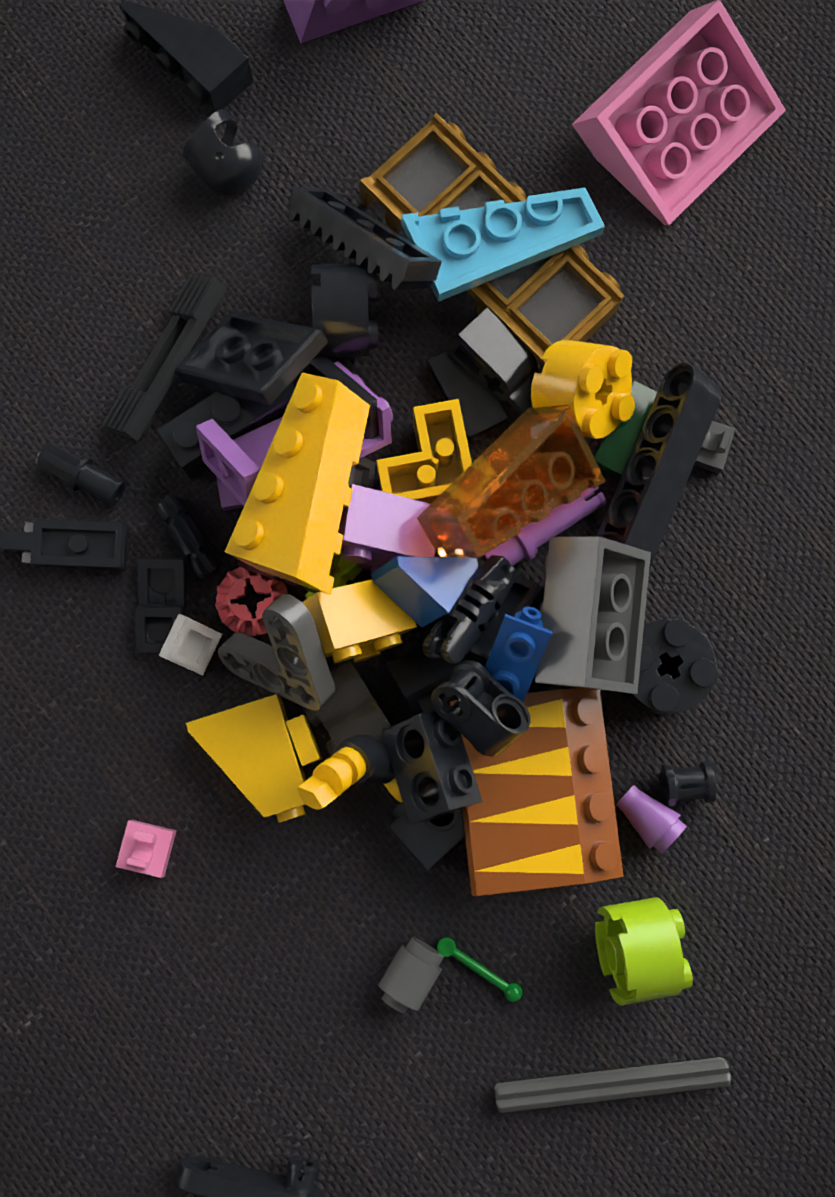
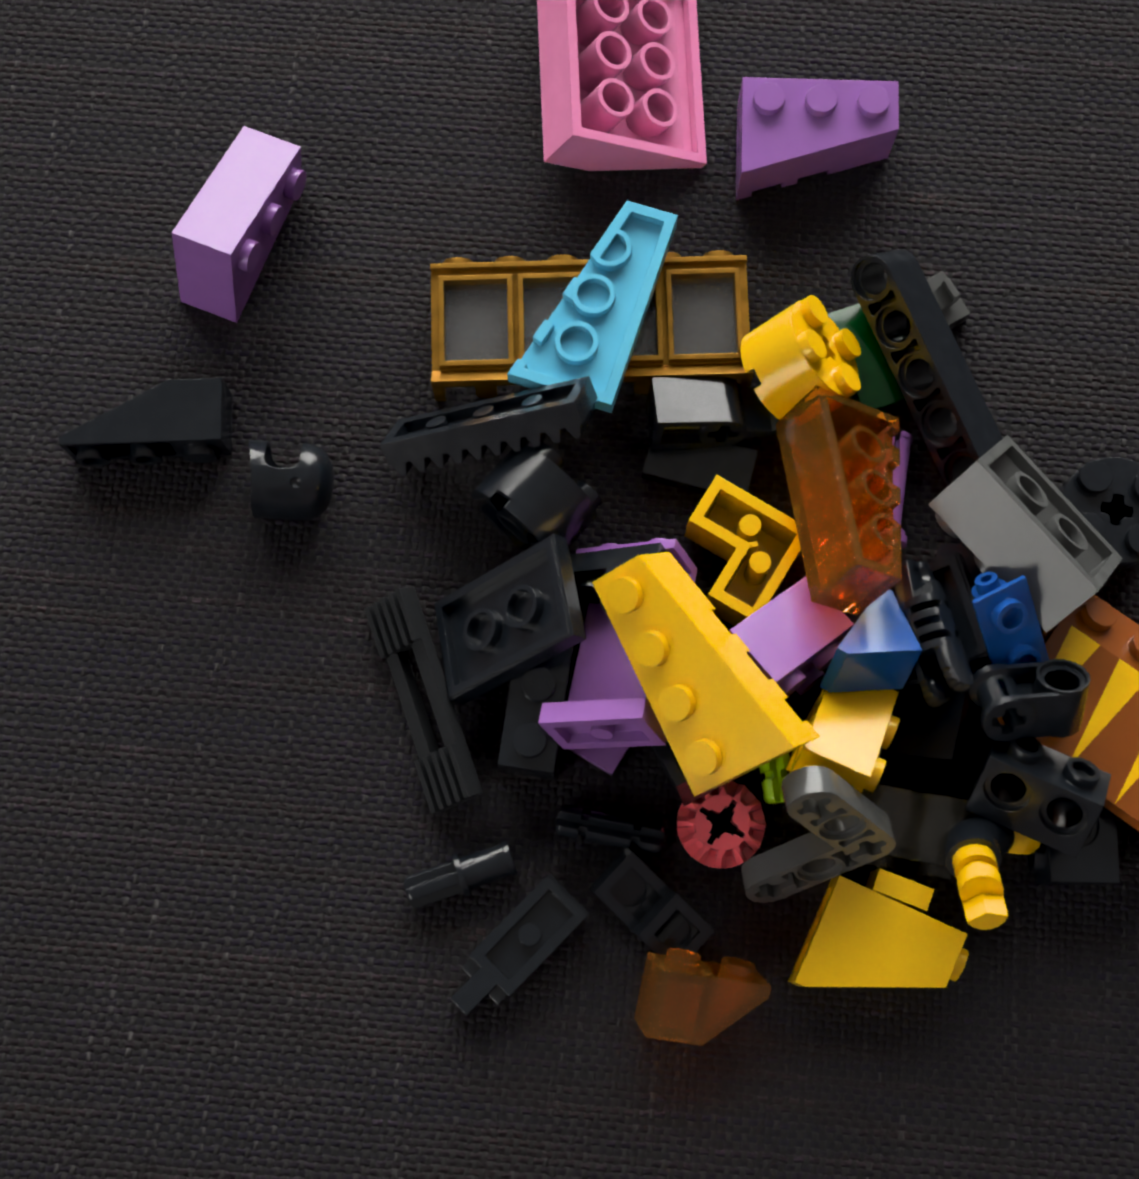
camera: 40 degrees left, 5 degrees down
(127, 673) = (695, 998): none -> clear orange slope
(146, 848) = (870, 1128): bright pink tile -> none
(190, 644) = (716, 915): white tile -> none
(749, 262) = (810, 127): none -> medium lavender wedge

